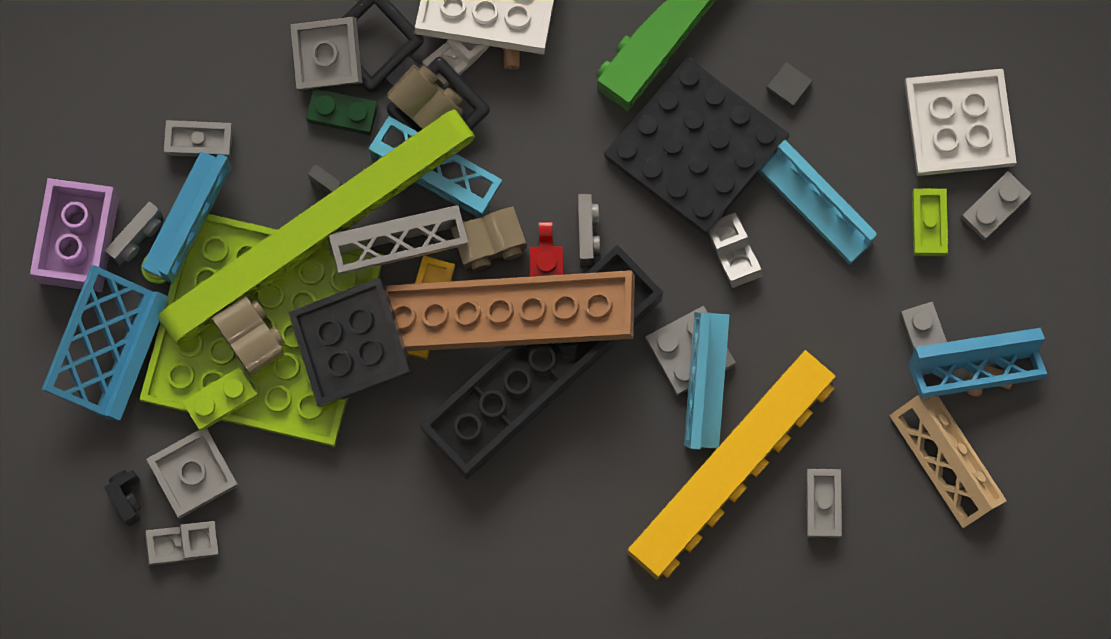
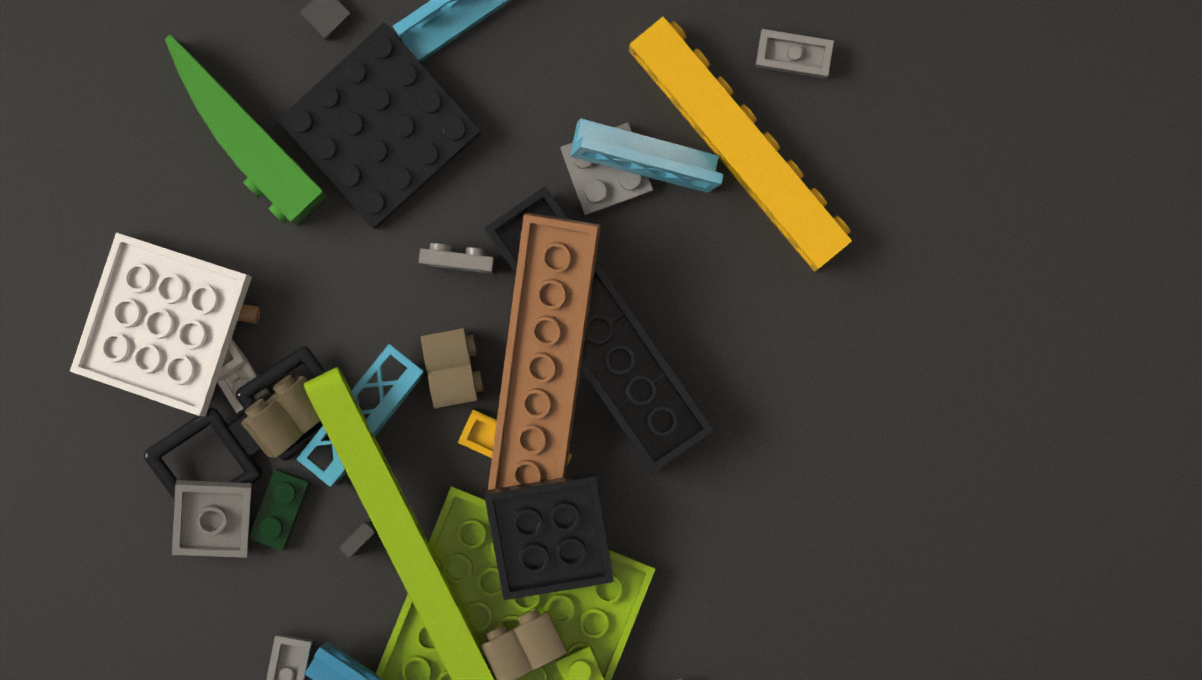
camera: 80 degrees left, 10 degrees up
(395, 232) = (429, 472): light grey fence -> none
(546, 258) = (483, 309): red plate -> none
(734, 251) = (504, 104): light grey slope -> none

